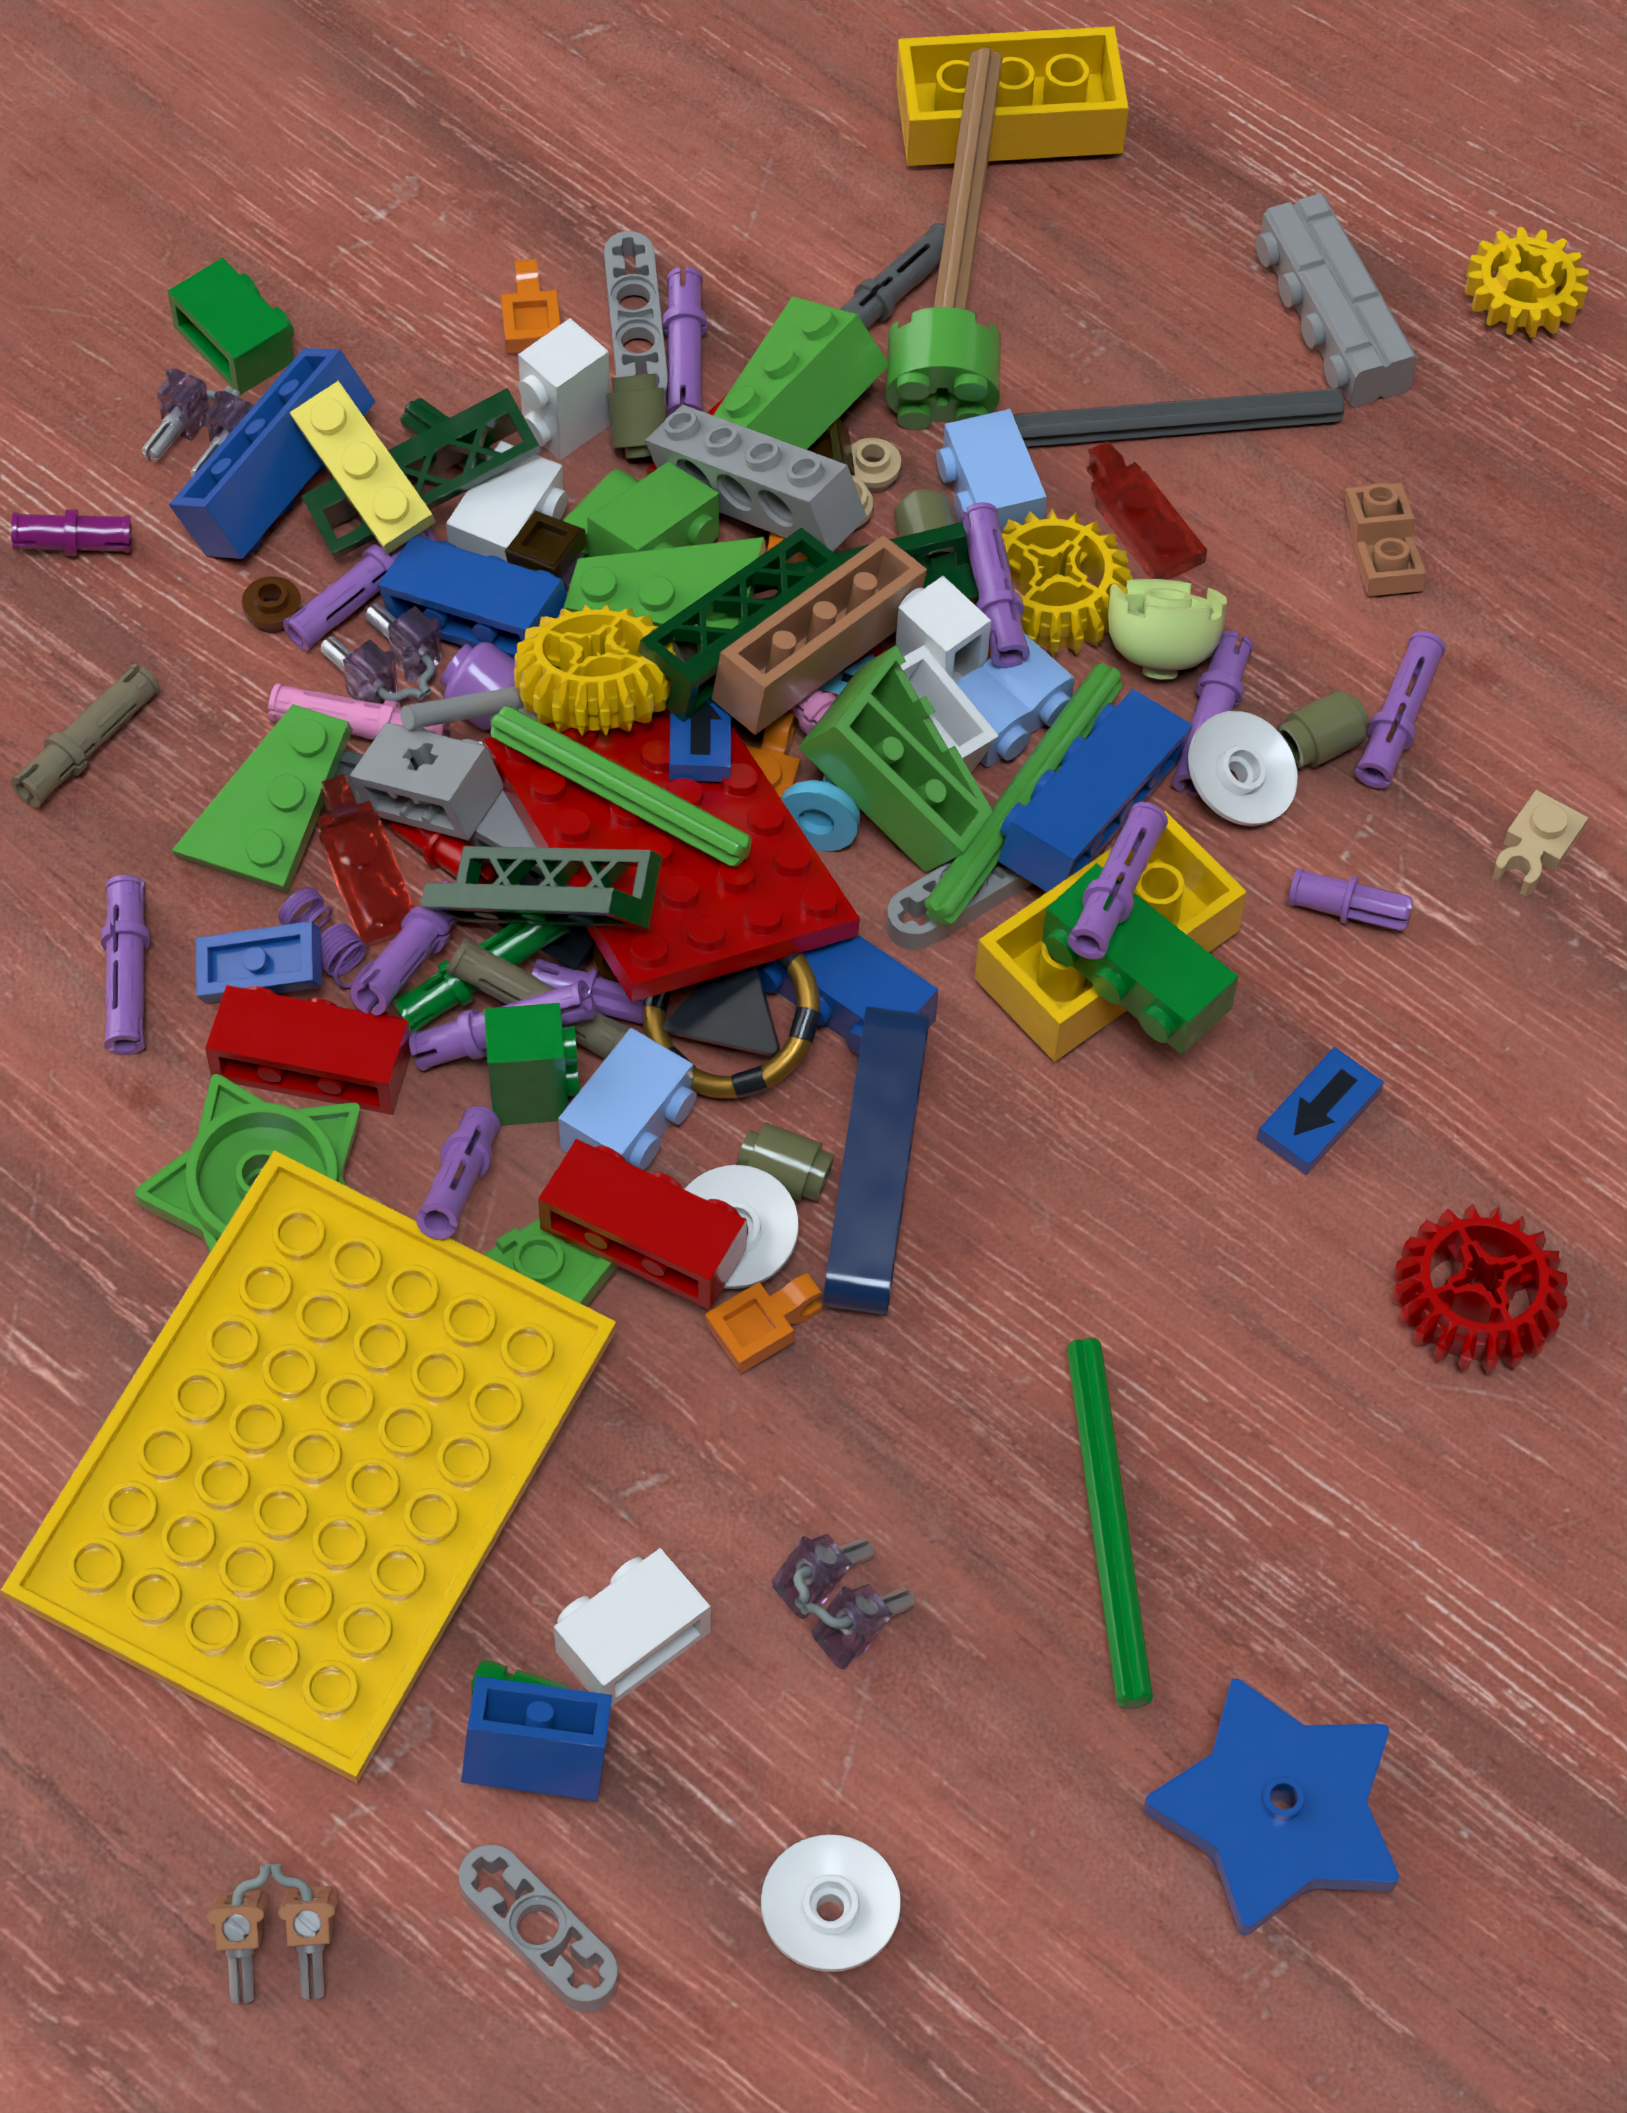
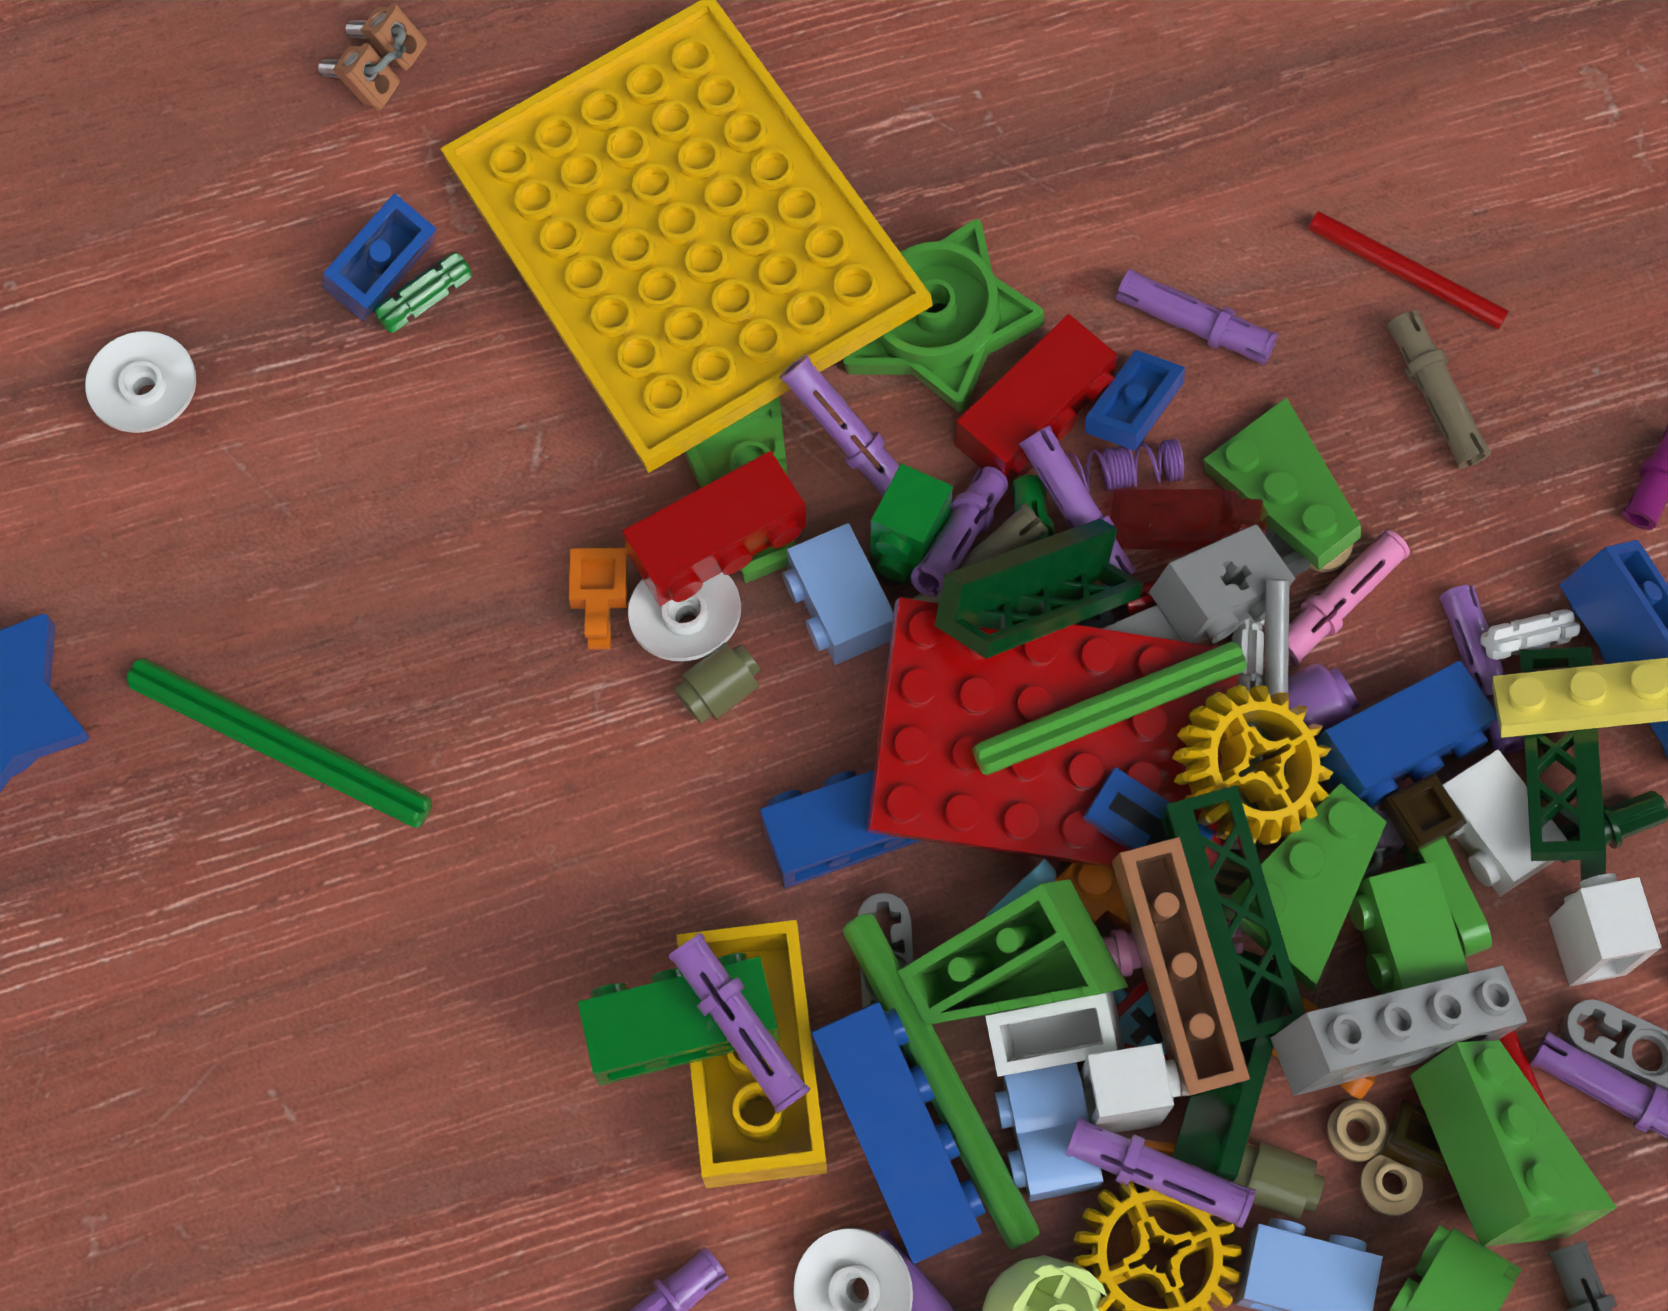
camera: 125 degrees right, 10 degrees up
(270, 616) = (1501, 606): reddish brown plate -> none
(308, 557) = (1530, 633): none -> white axle
(372, 672) = (1376, 625): clear purple piece -> none
(586, 1950) = (226, 203): light grey beam -> none
(631, 1626) = (422, 368): white piece -> none
(635, 412) = (1553, 990): olive brick -> none
(737, 1015) = (850, 711): piece -> none
(853, 1615) = (320, 509): clear purple piece -> none
(876, 1161) = (666, 736): dark blue beam -> none
(1320, 1110) = (497, 1138): blue tile -> none
(1471, 1309) = (246, 1168): red gear -> none

